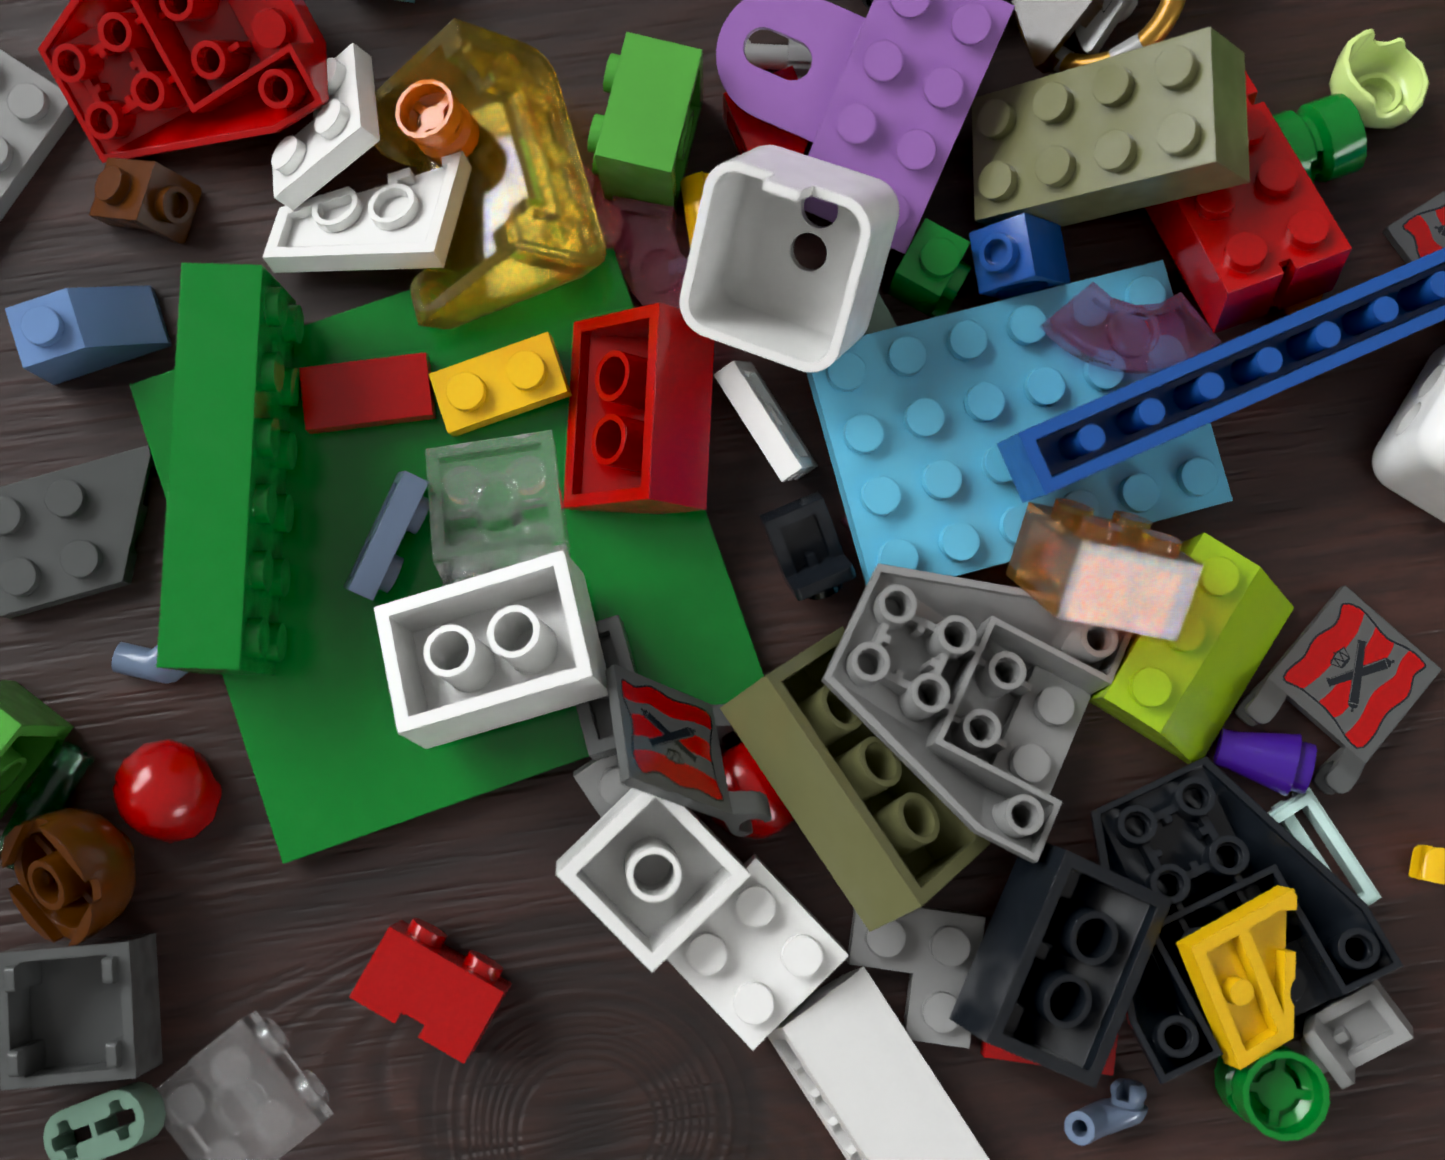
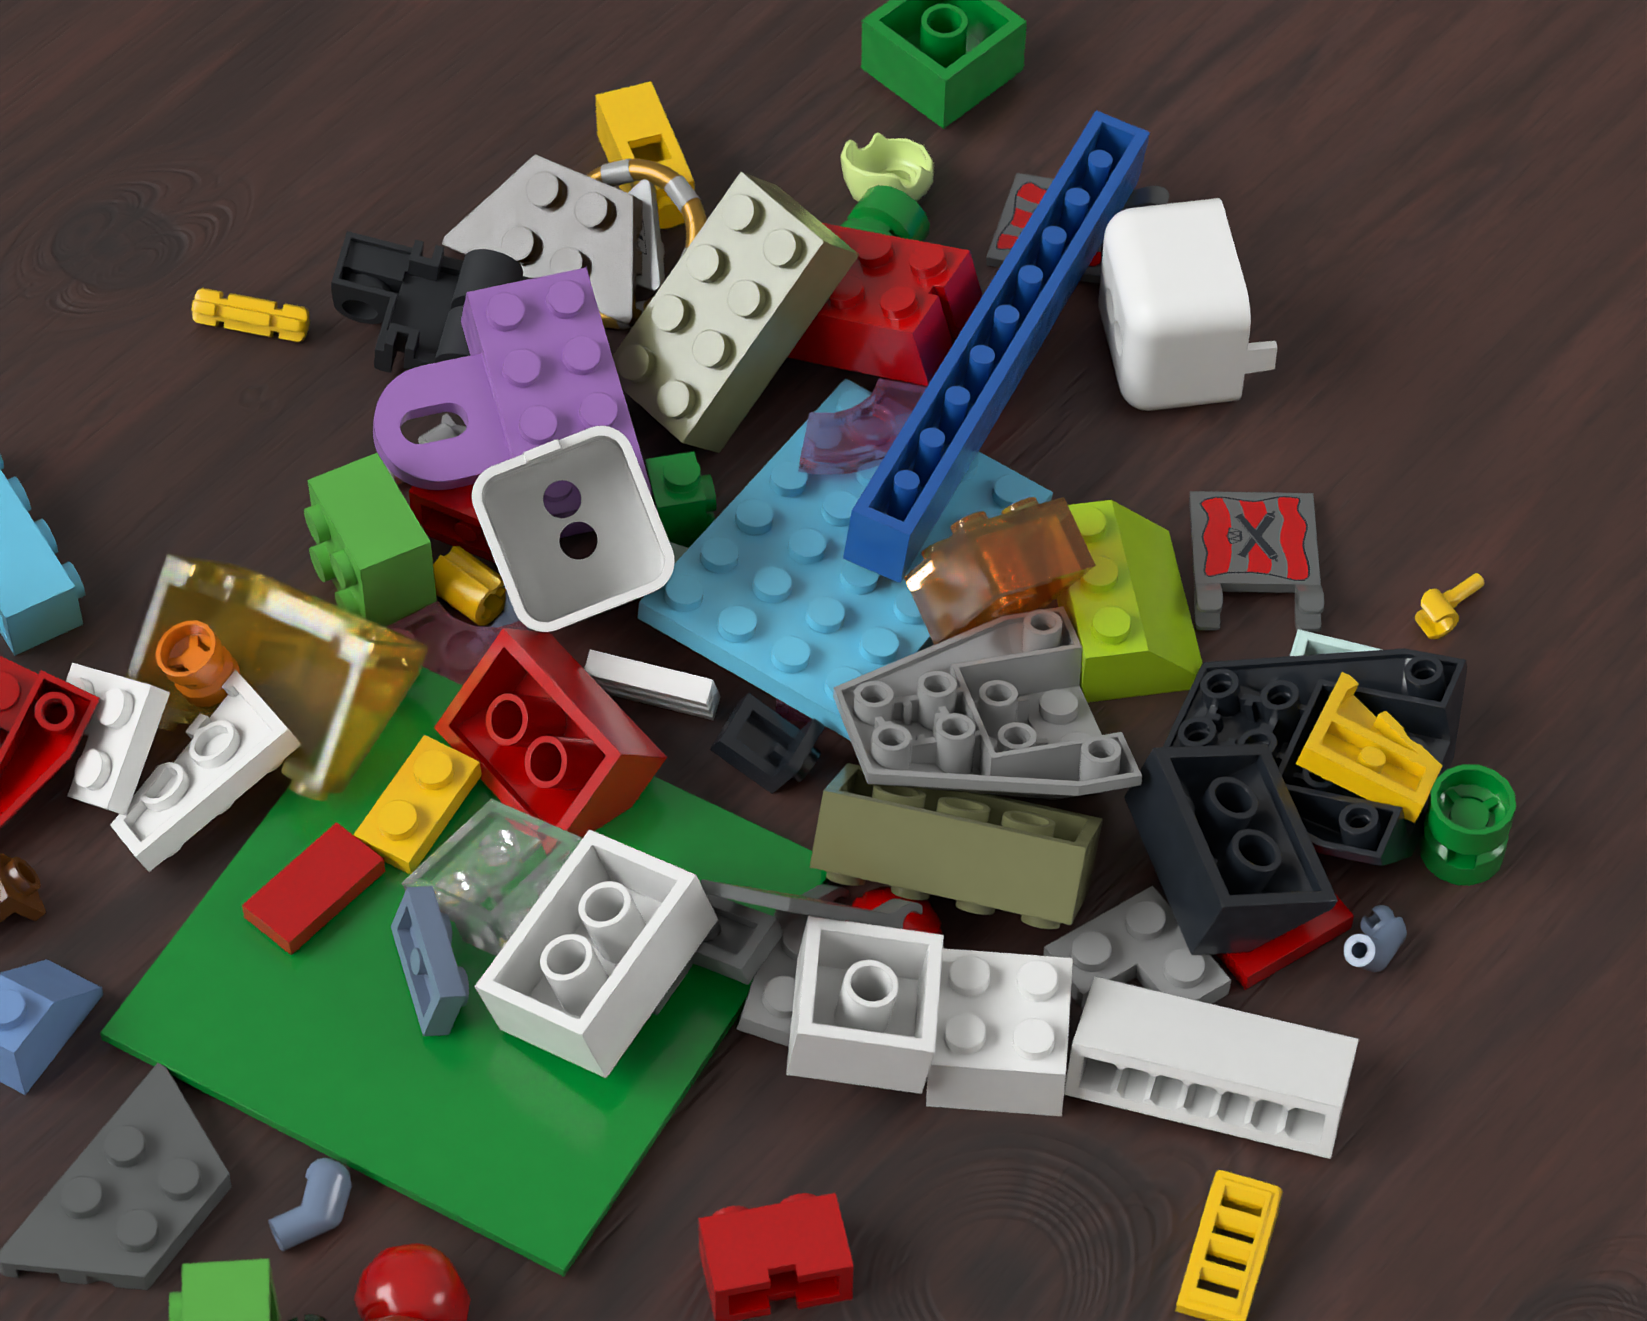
camera: 40 degrees left, 30 degrees down
(229, 472) = (269, 993): green brick -> none
(1019, 257) = (736, 442): blue brick -> none
(1270, 759) = (1250, 631): dark purple cone -> none
(1353, 1031) = (1491, 739): light grey bracket -> none

